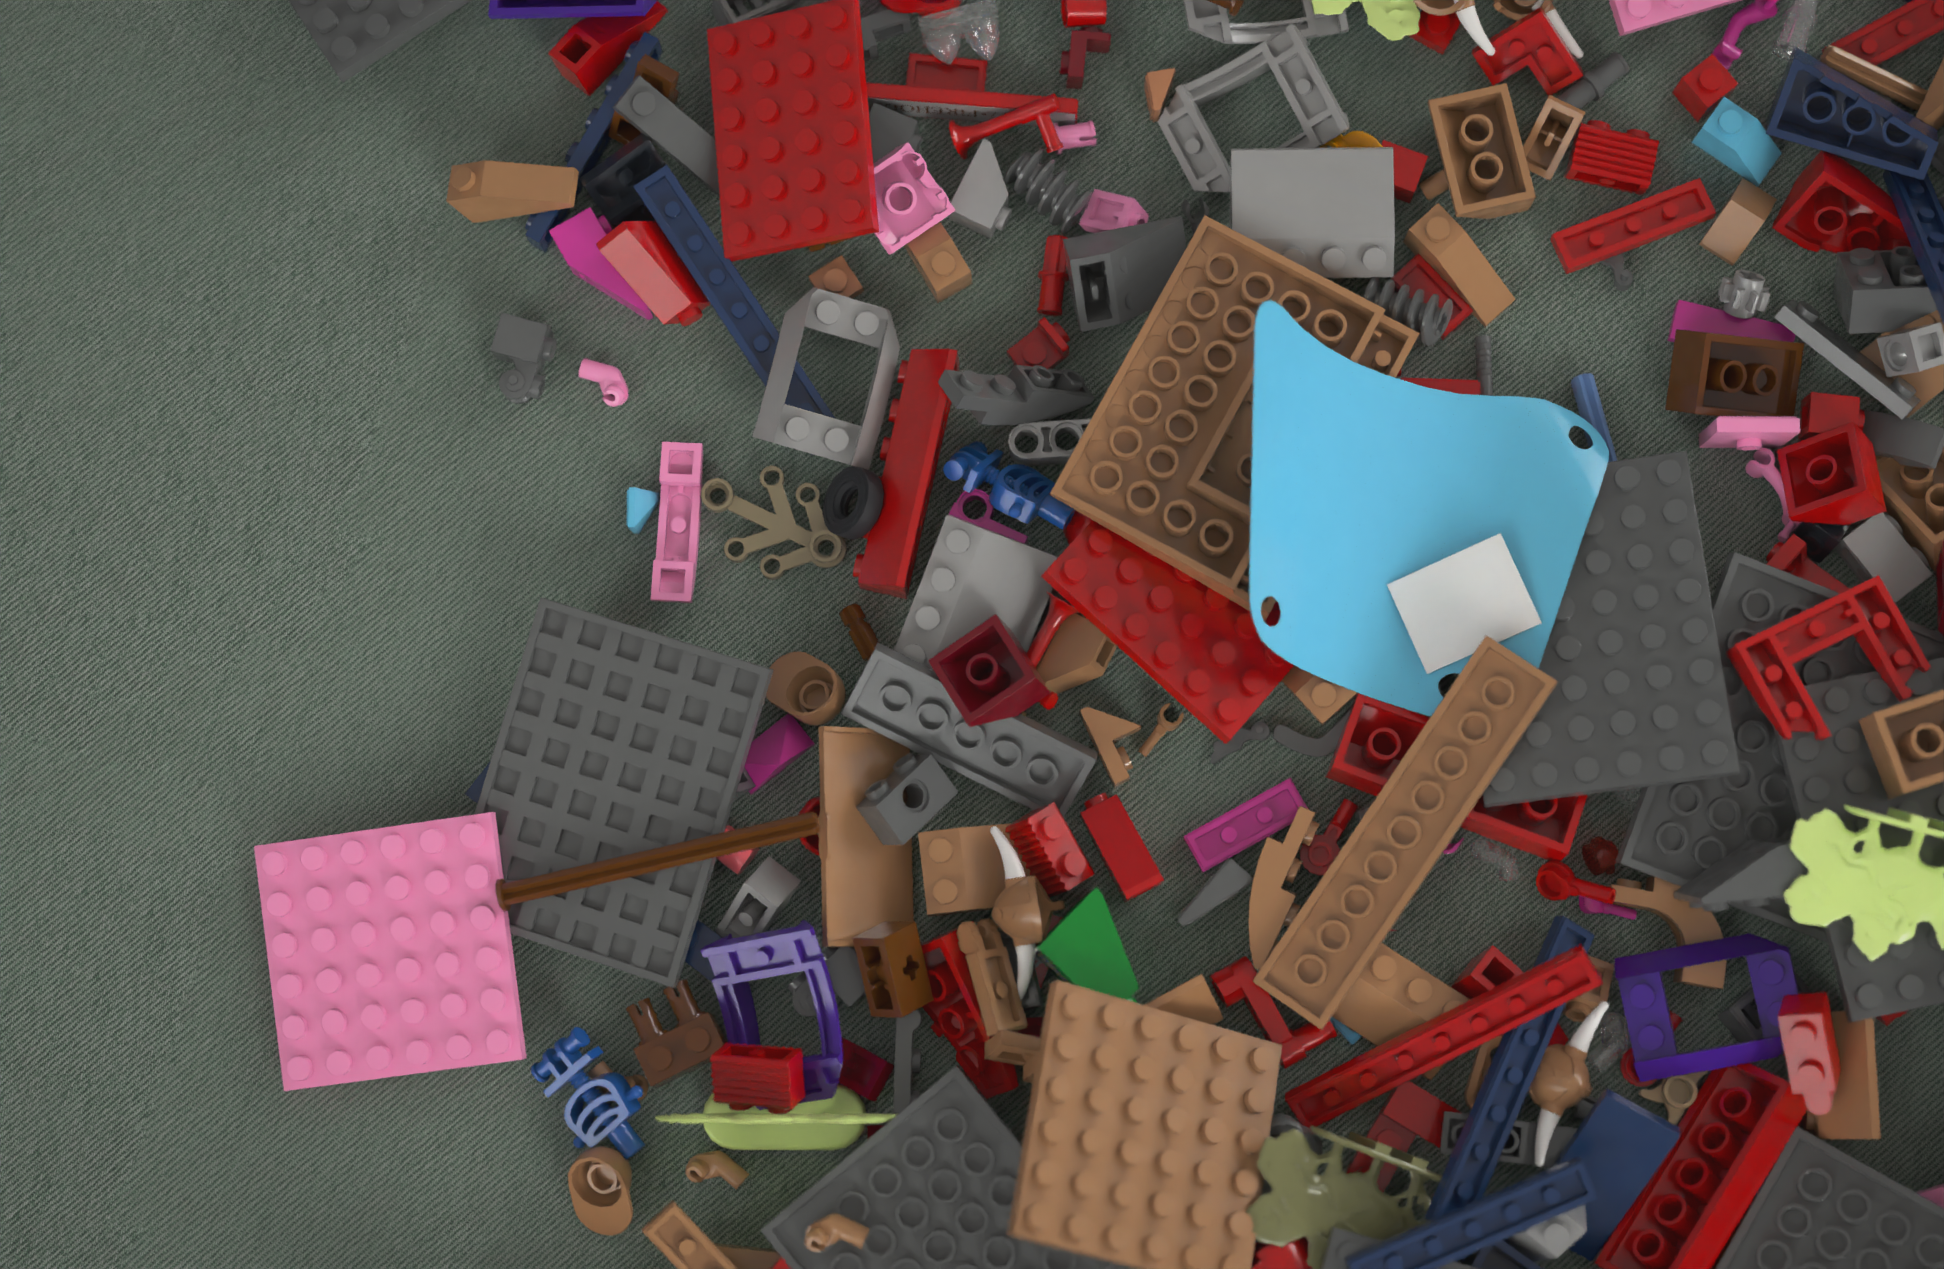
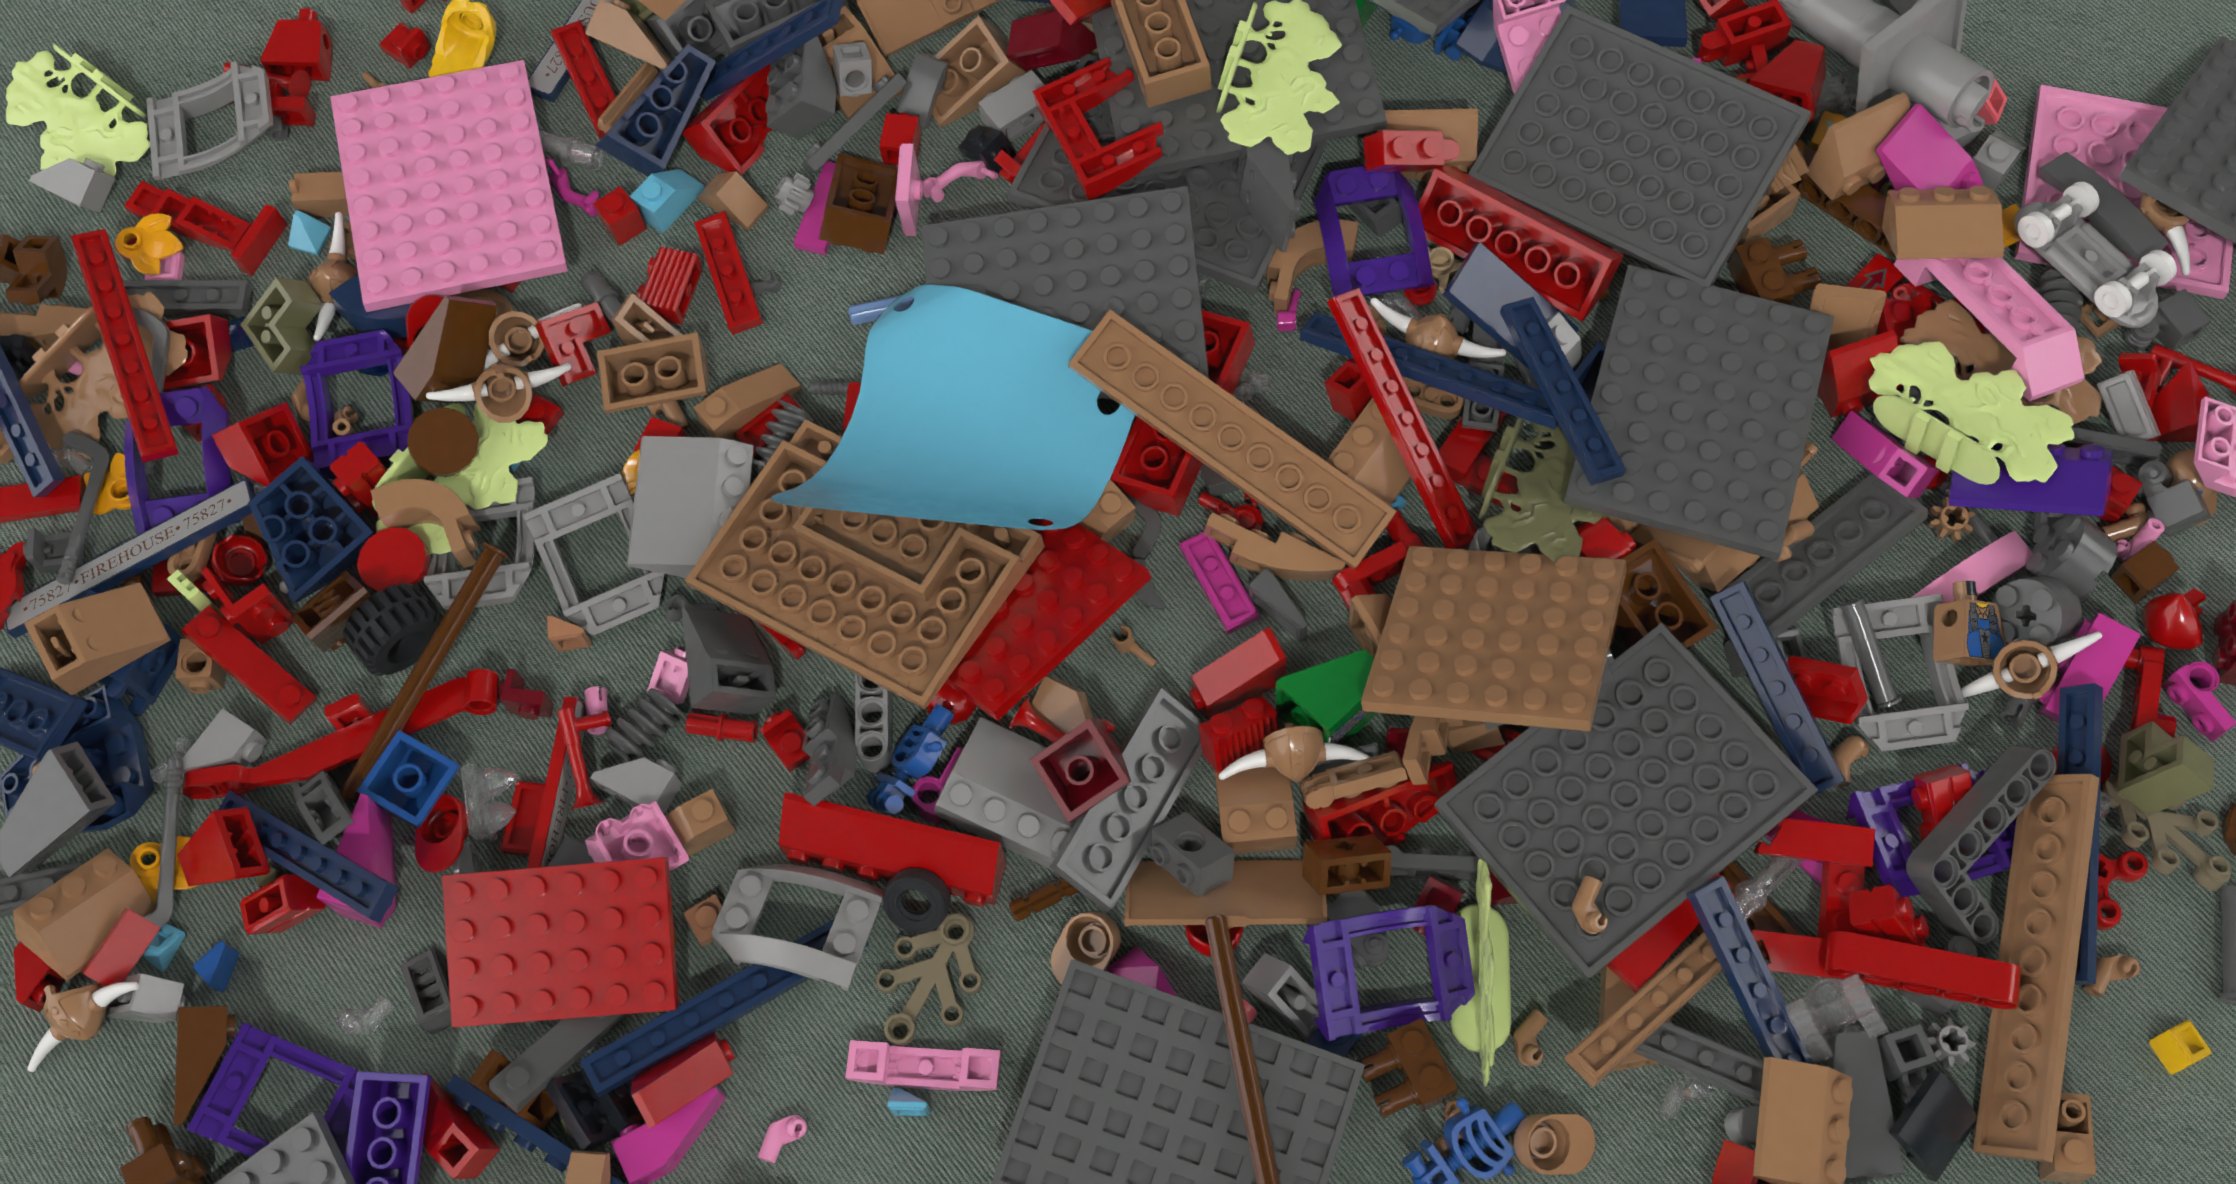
camera: 90 degrees left, 15 degrees down
(758, 1077) = (1447, 982): red brick -> none
(1104, 732) = (1135, 691): medium nougat slope -> none
(1462, 601) = (1038, 390): white sticker -> none
(1558, 882) = (1270, 341): red plate -> none
(1600, 856) = (1250, 310): clear red plate -> none
(1832, 477) = (949, 133): red slope -> none

